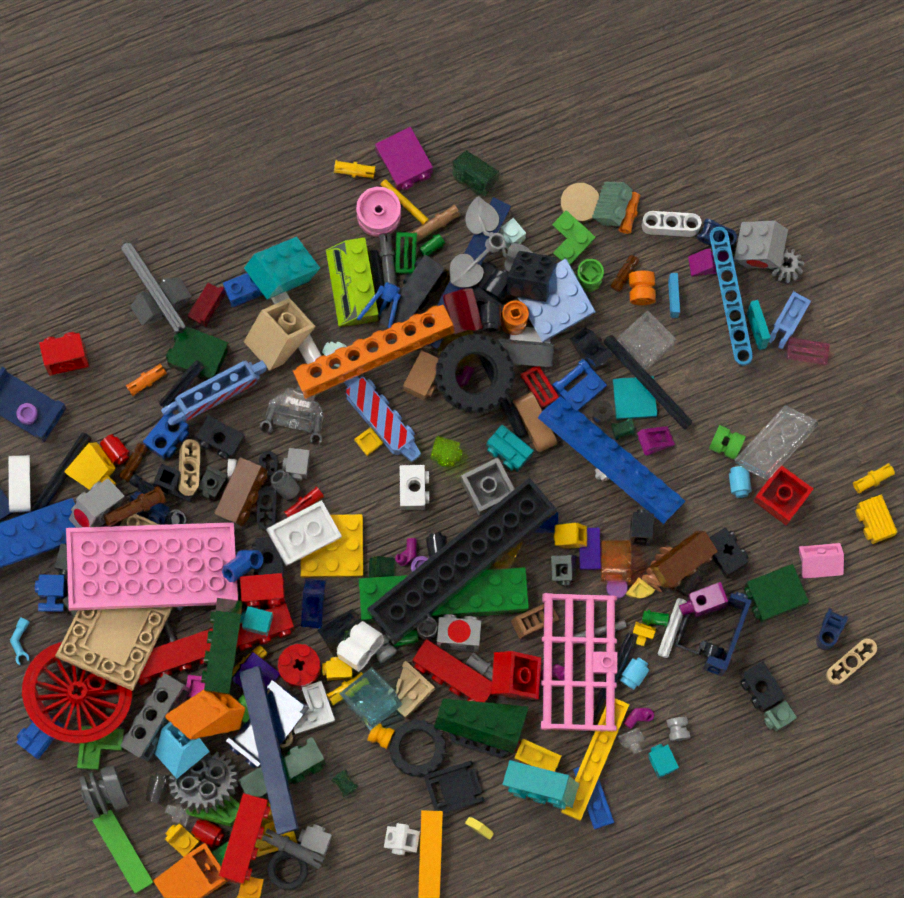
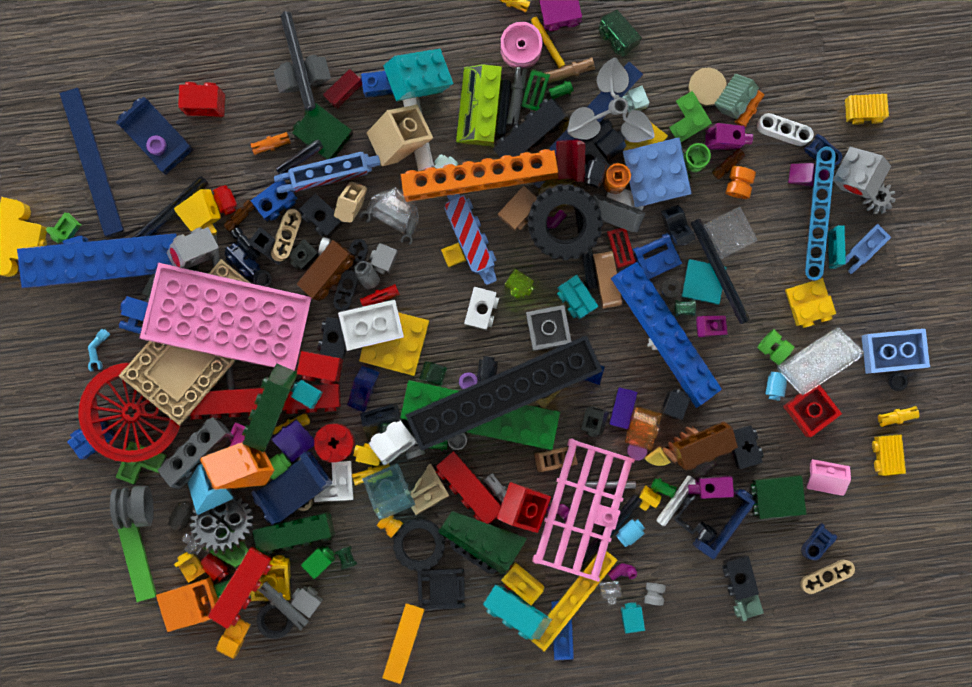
camera: 25 degrees right, 10 degrees up
(19, 484) = (132, 208): white beam -> none
(143, 502) = (234, 257): reddish brown pin -> none
(242, 564) = (308, 338): blue piece -> none
(247, 414) = (350, 202): none -> tan brick
(269, 750) = (284, 514): dark blue tile -> none
(317, 792) = (318, 561): none -> green brick
(388, 293) = (508, 126): blue plant -> none
(401, 839) = (381, 623): white brick -> none
(409, 554) = (460, 368): magenta arm -> none
(459, 633) = (483, 455): light grey brick -> none
(479, 827) = (457, 635): light yellow tile -> none
(530, 276) = (642, 144): black bracket -> none
(570, 535) = (609, 393): yellow brick -> none
(615, 246) = (727, 137): none -> magenta torso
(674, 295) = (767, 197): dark azure tile -> none
(747, 180) = (866, 108): none -> yellow brick
(749, 389) = (810, 303): none -> yellow plate
(825, 346) = (889, 288): clear pink tile -> none
(849, 412) = (895, 351): none -> light blue brick
(862, 443) = (897, 381): none -> black plate

